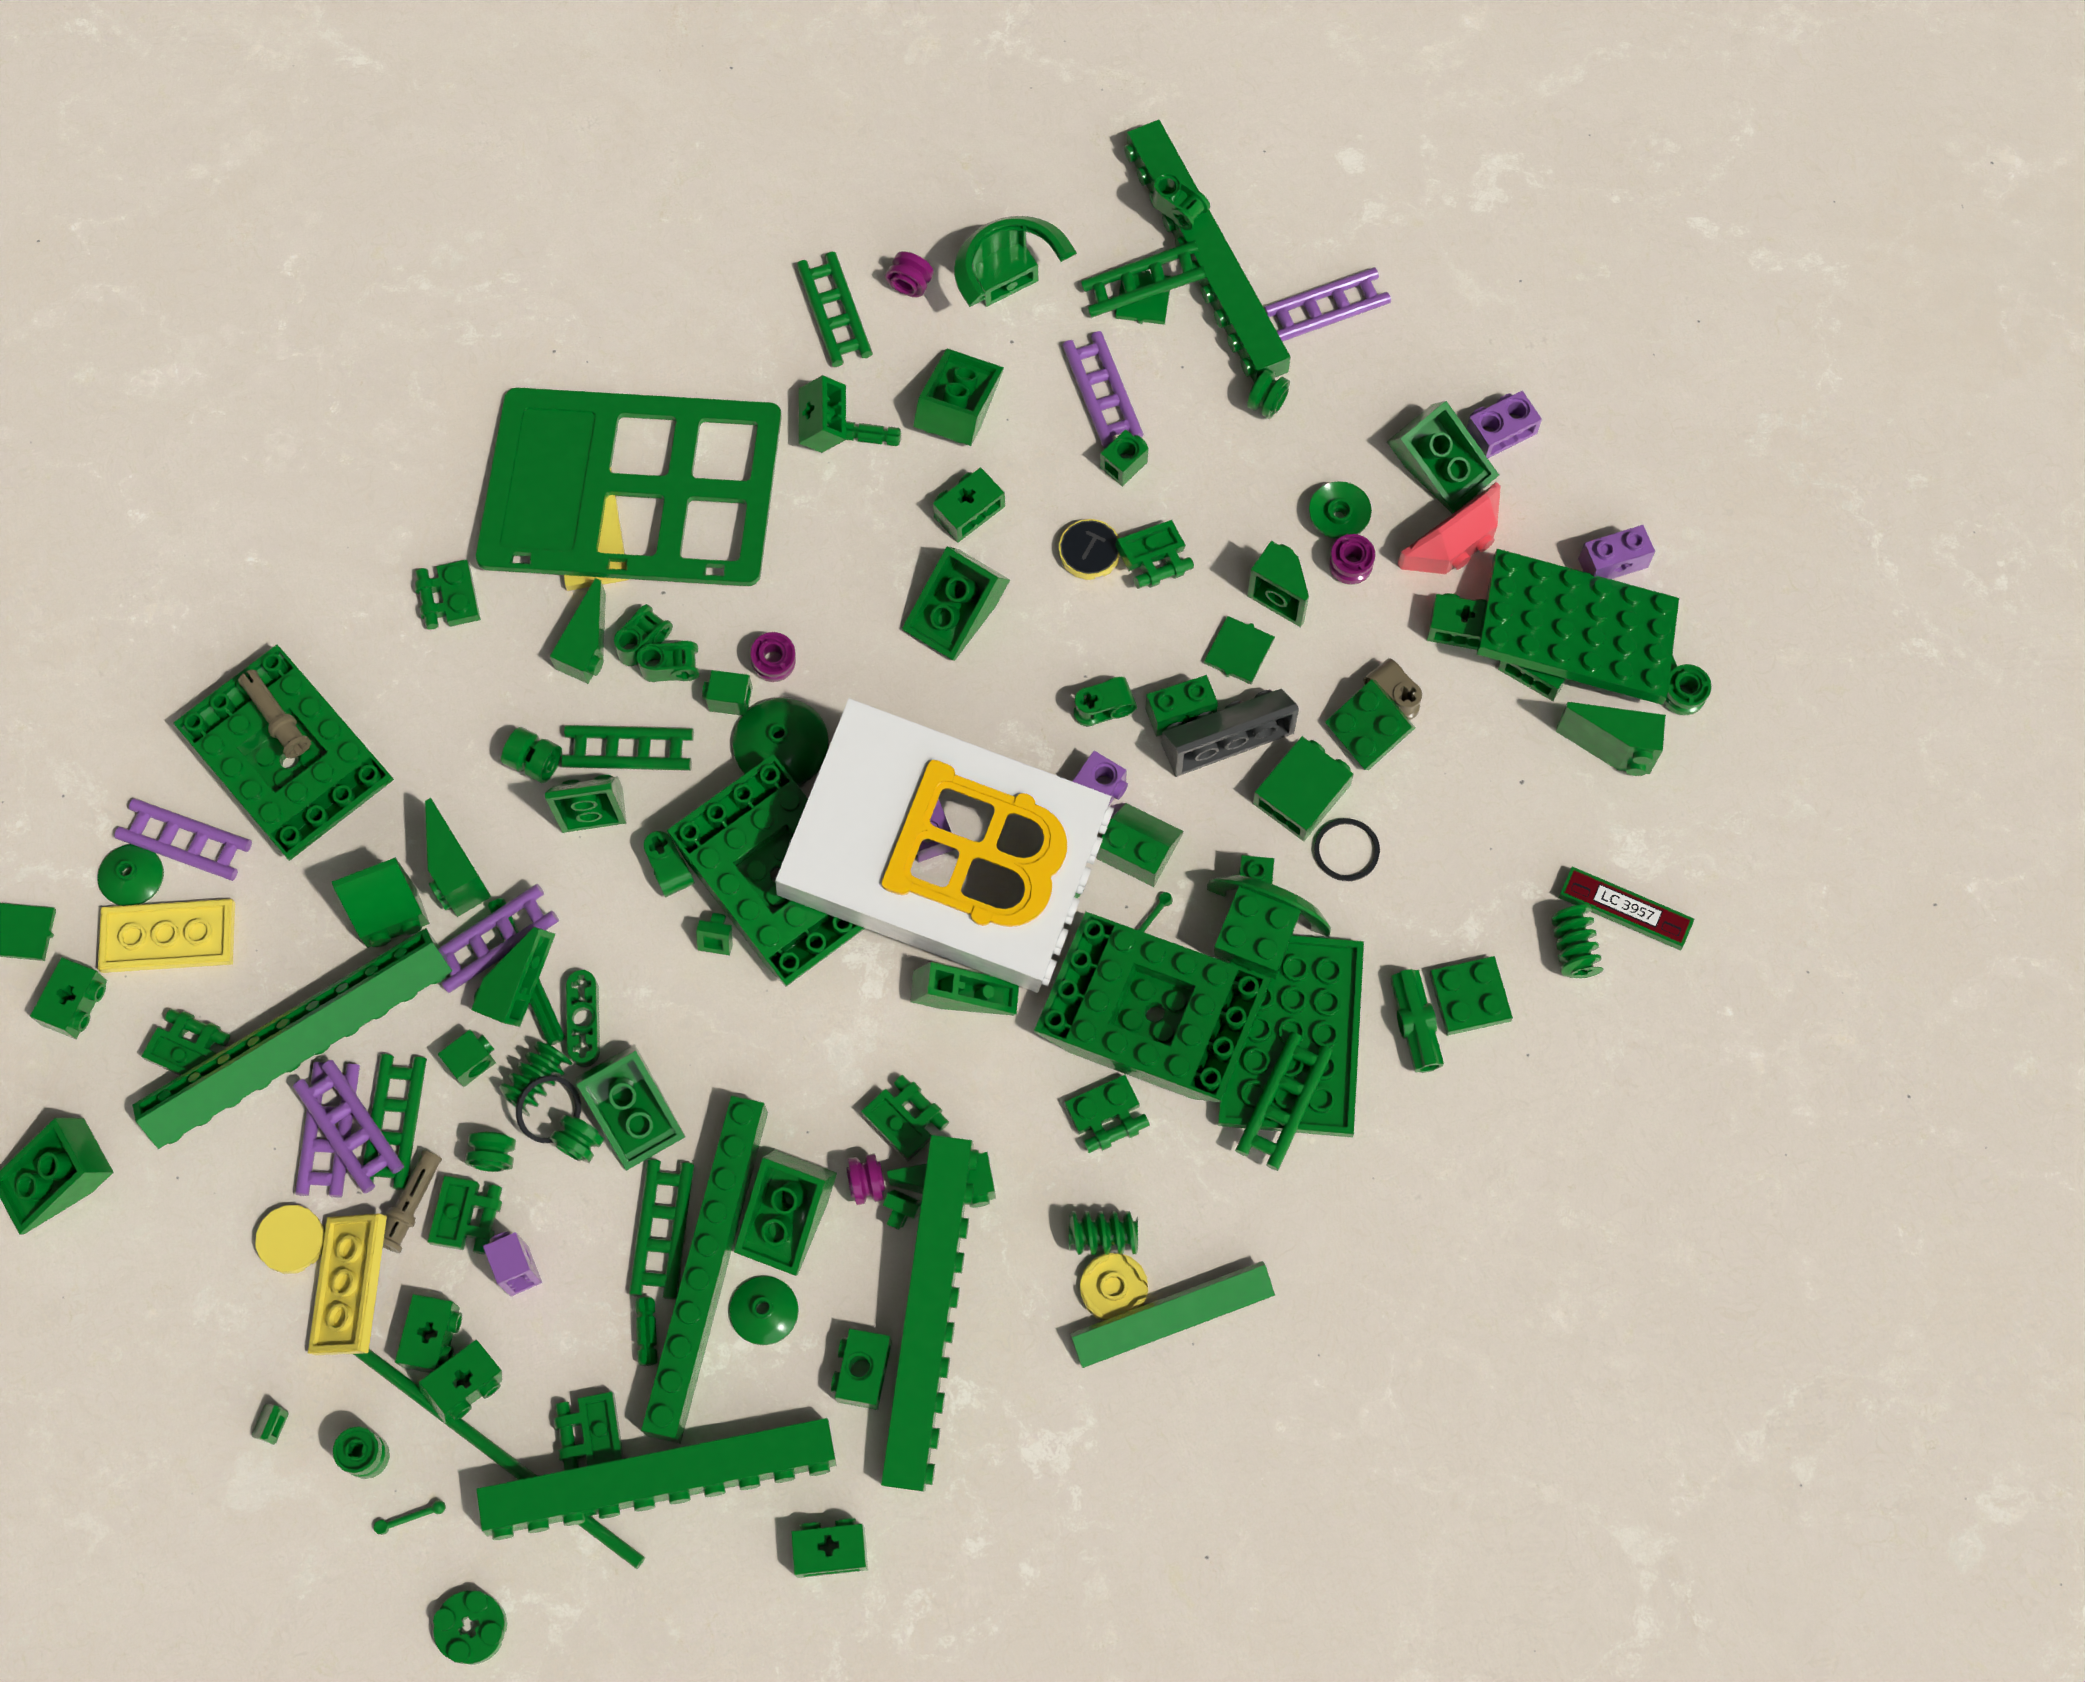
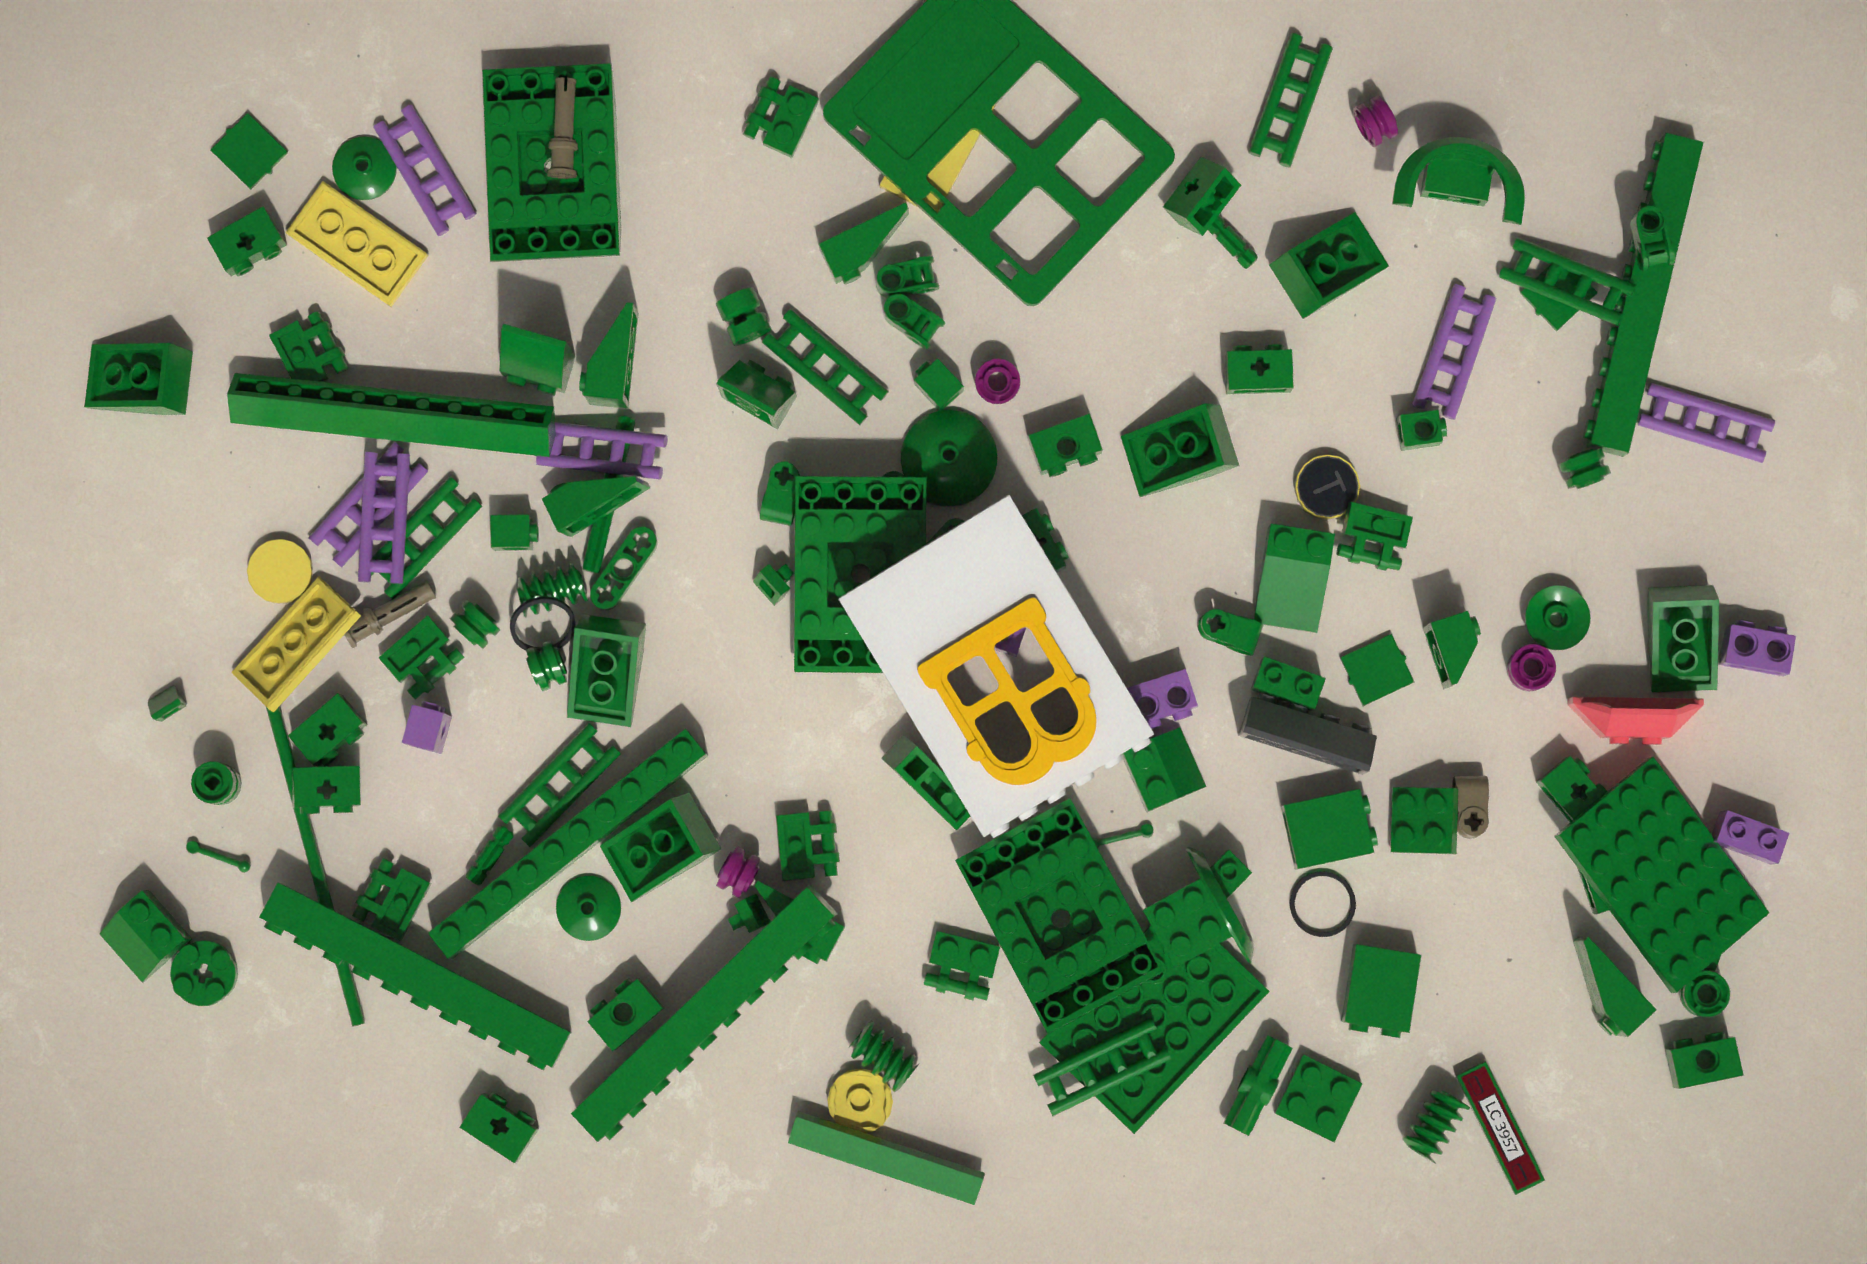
camera: 40 degrees right, 15 degrees up
(391, 1635) = (144, 935): none -> green slope
(865, 646) = (1079, 431): none -> green brick
(1119, 626) = (1293, 577): none -> green slope
(1446, 874) = (1381, 990): none -> green brick
(1722, 754) = (1724, 1061): none -> green brick

